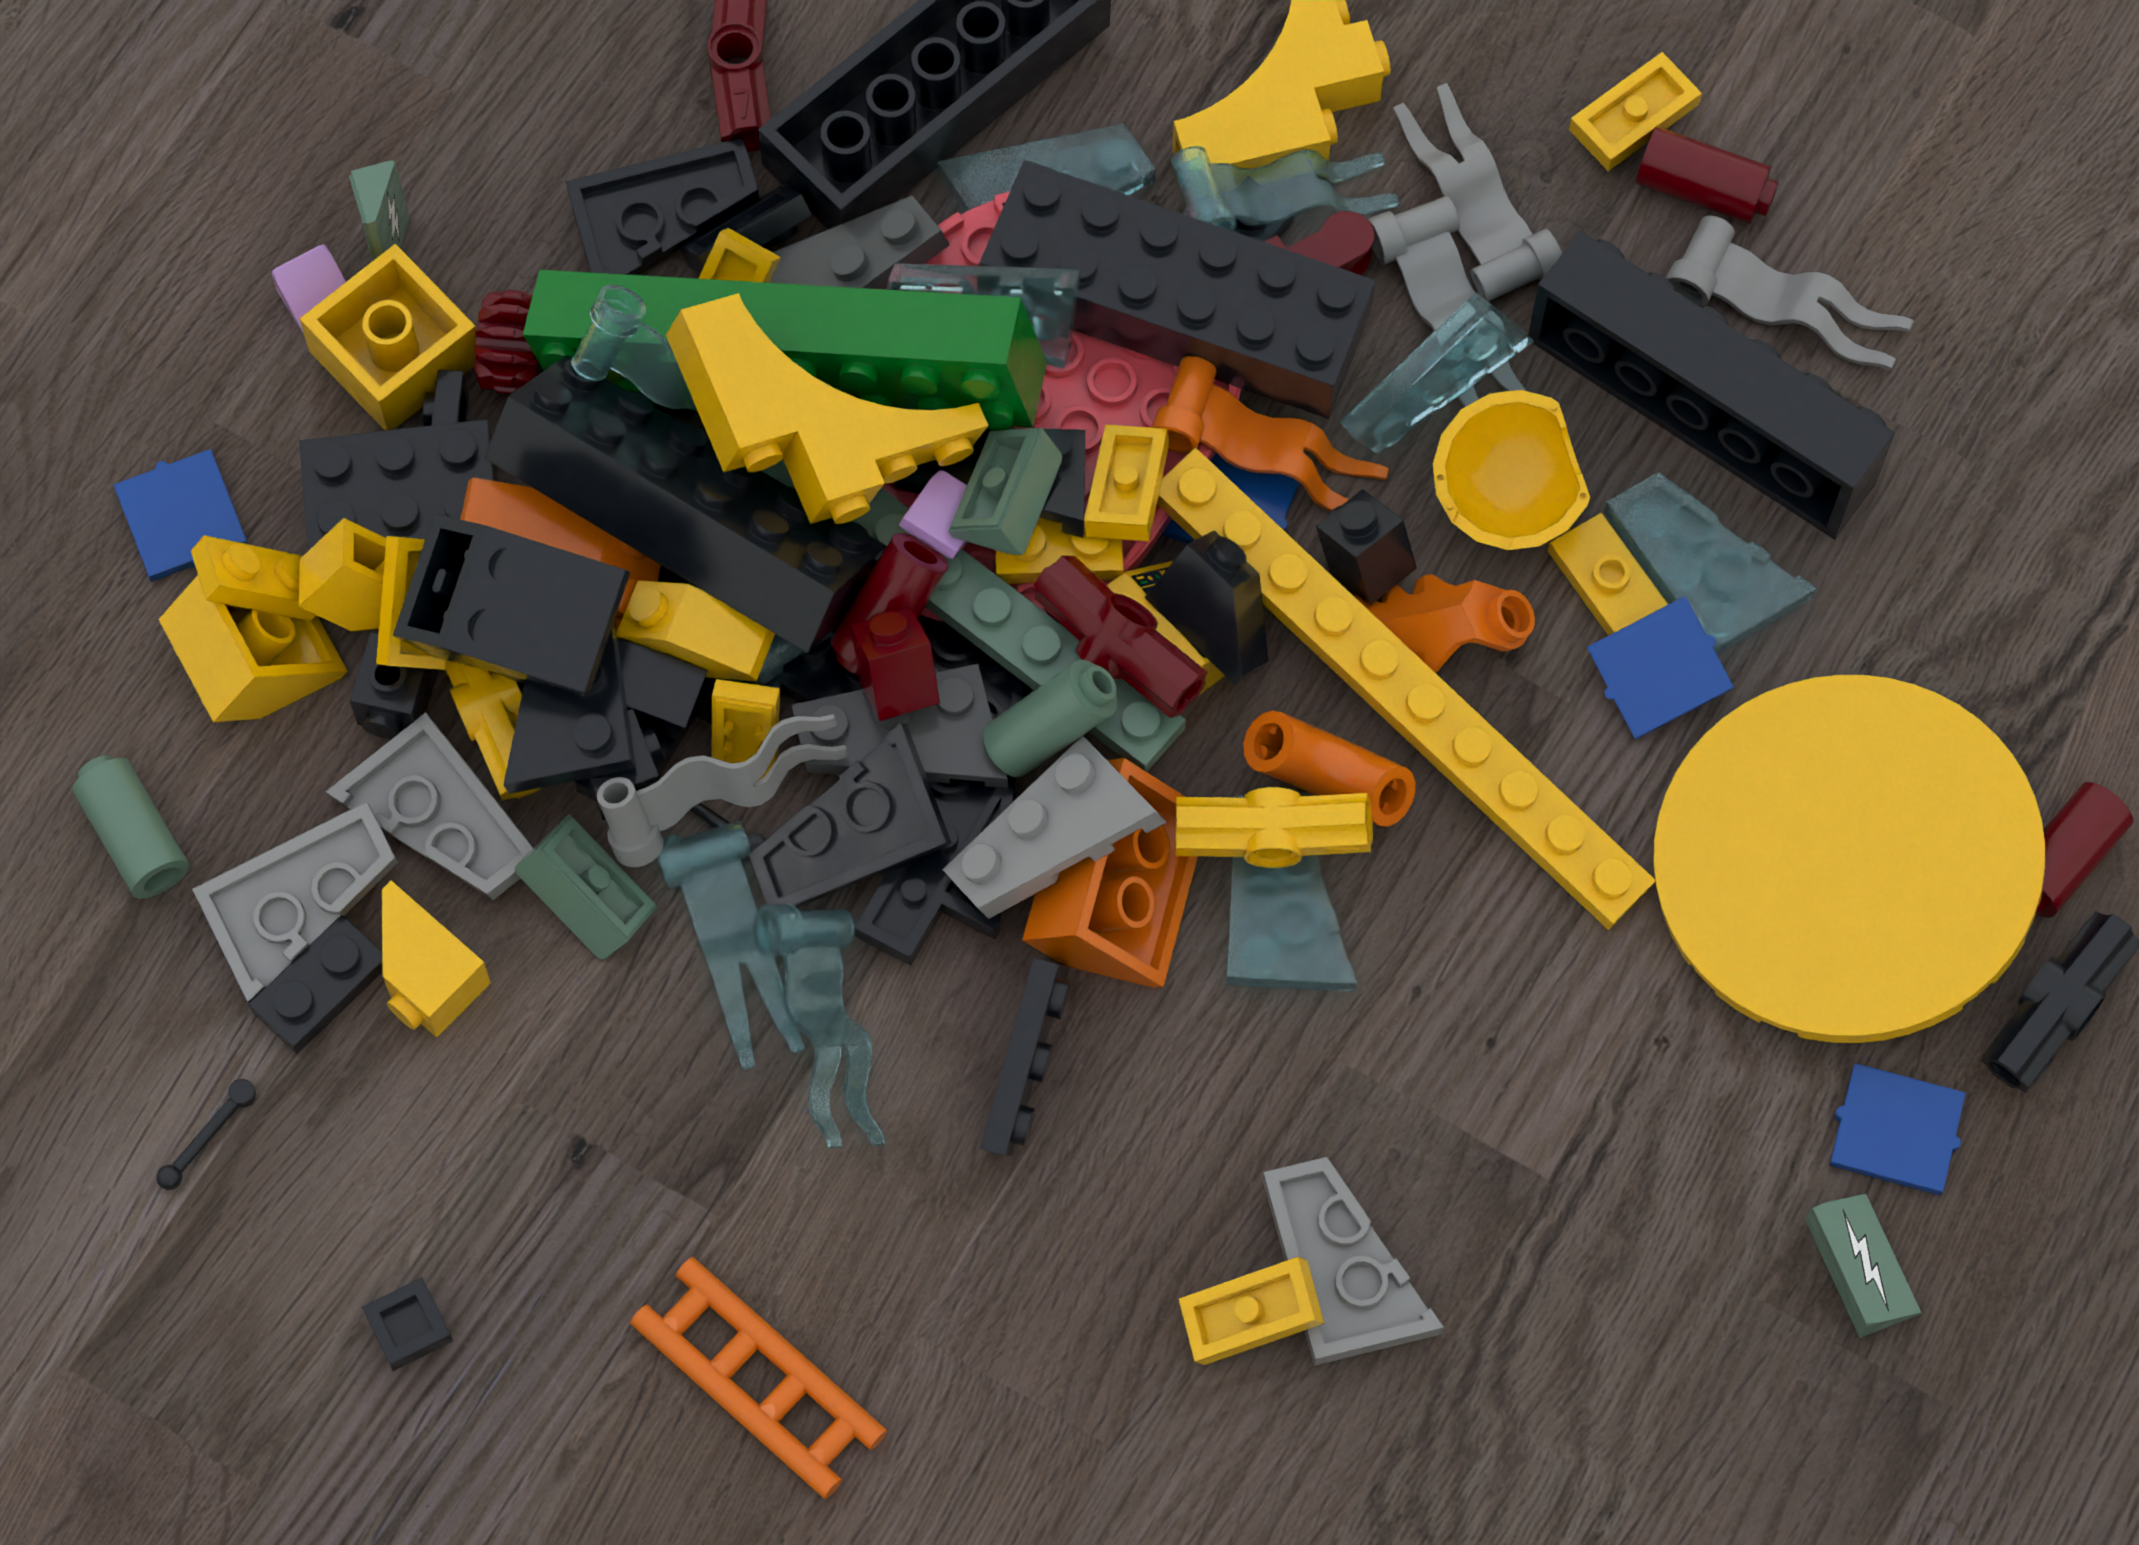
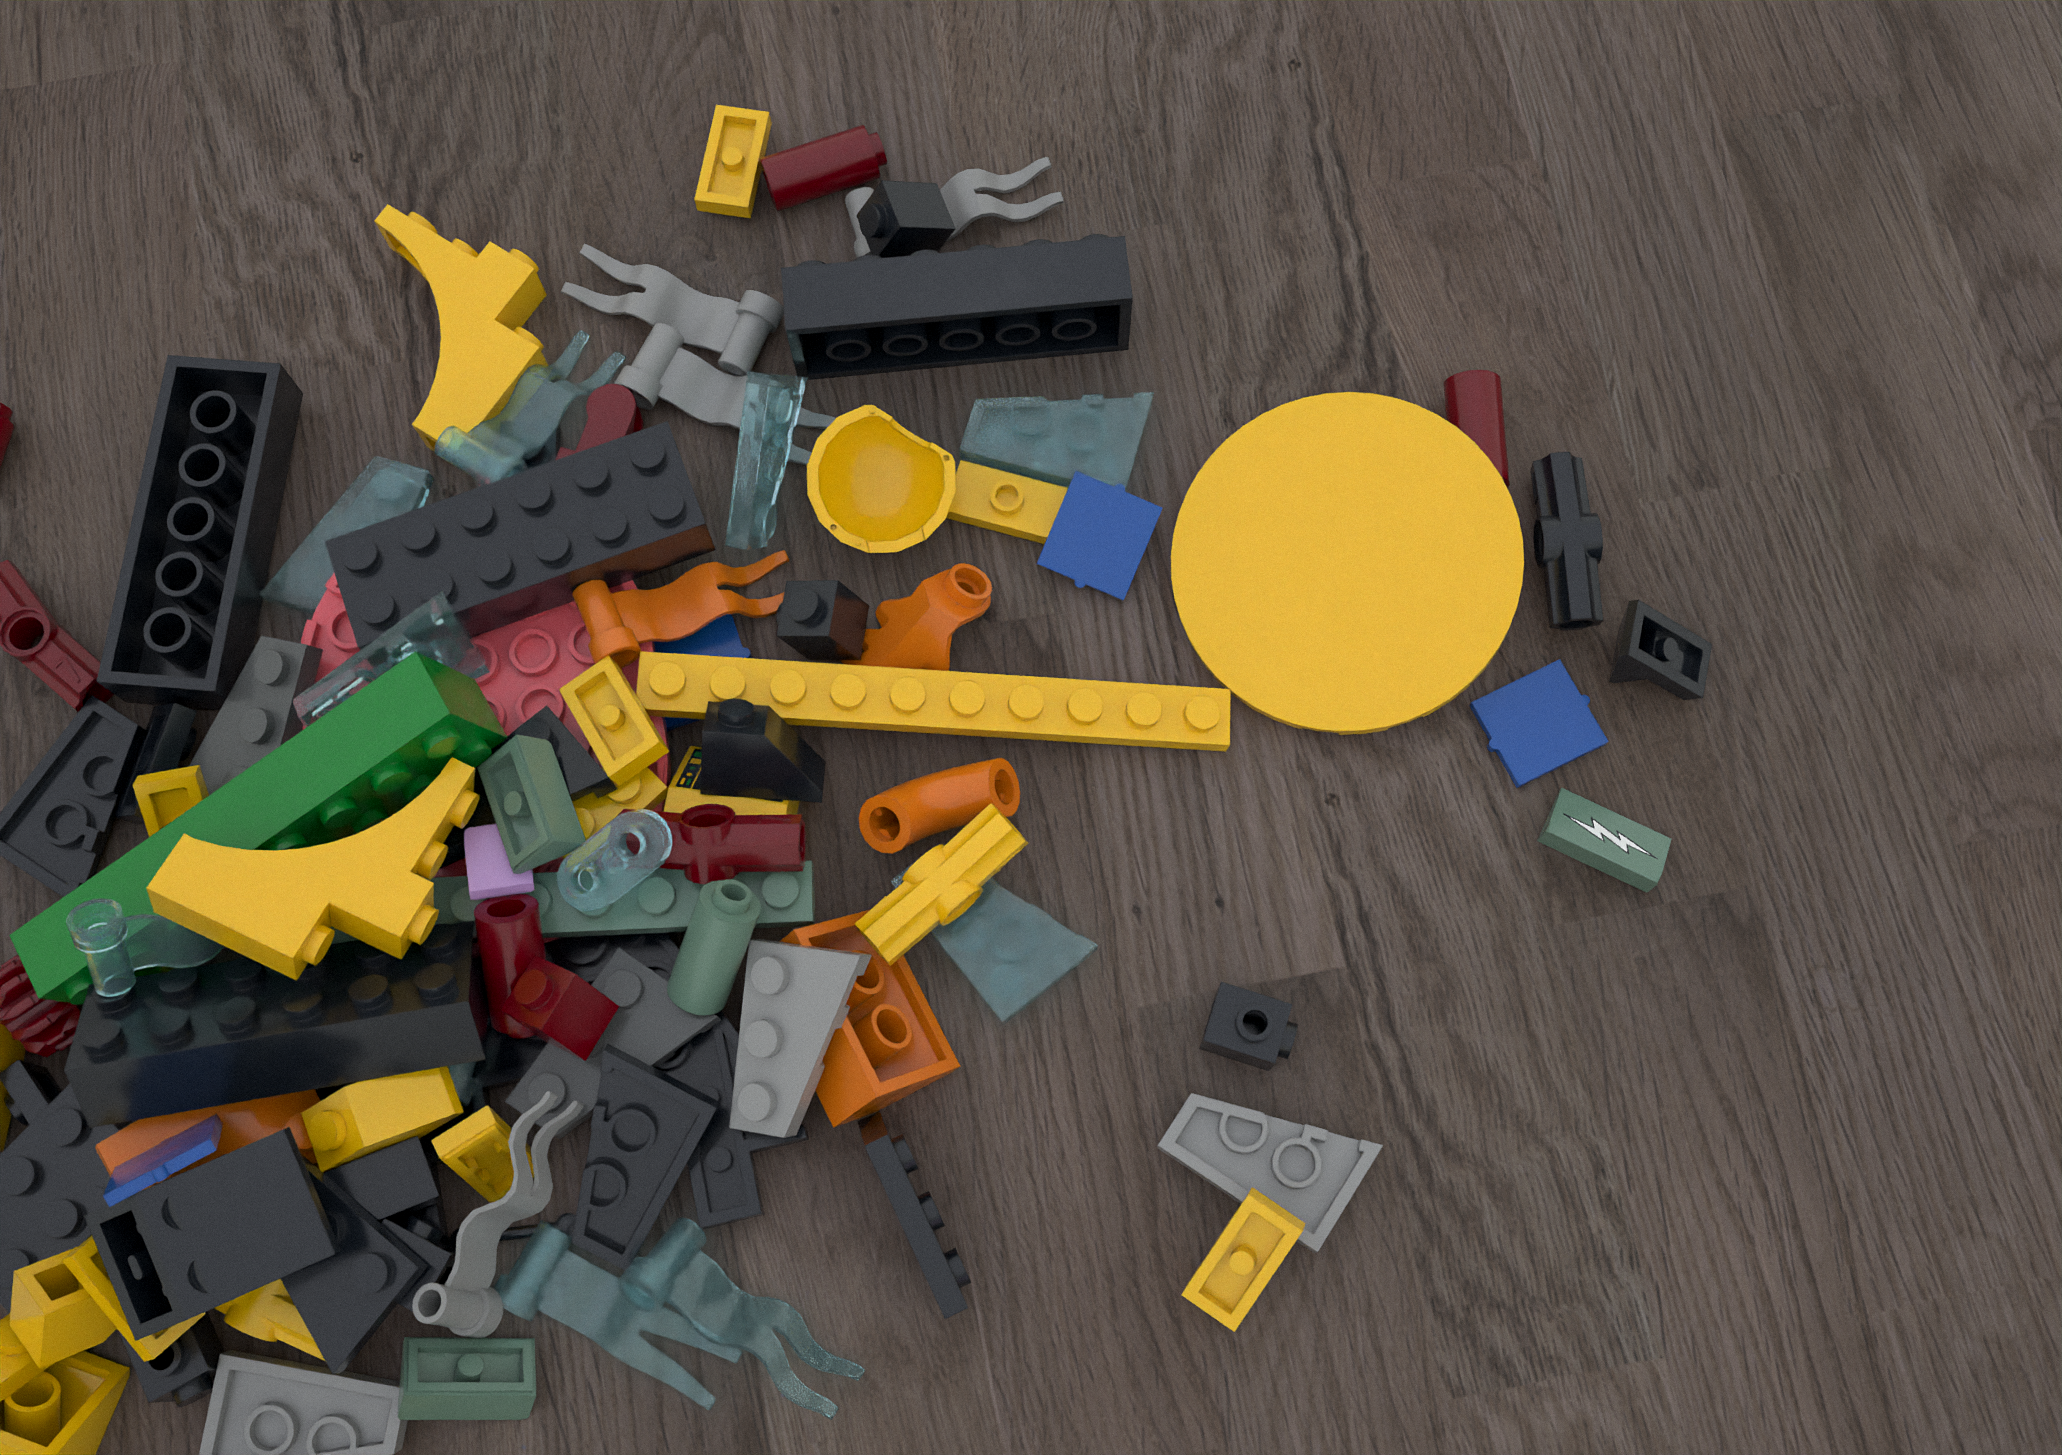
camera: 40 degrees left, 5 degrees up
(519, 523) = (163, 1160): none -> blue piece
(1028, 586) = (611, 862): none -> clear light blue plate
(1419, 1148) = (1248, 1027): none -> black brick
(1729, 275) = (905, 219): none -> black brick
(2052, 1151) = (1660, 651): none -> black slope

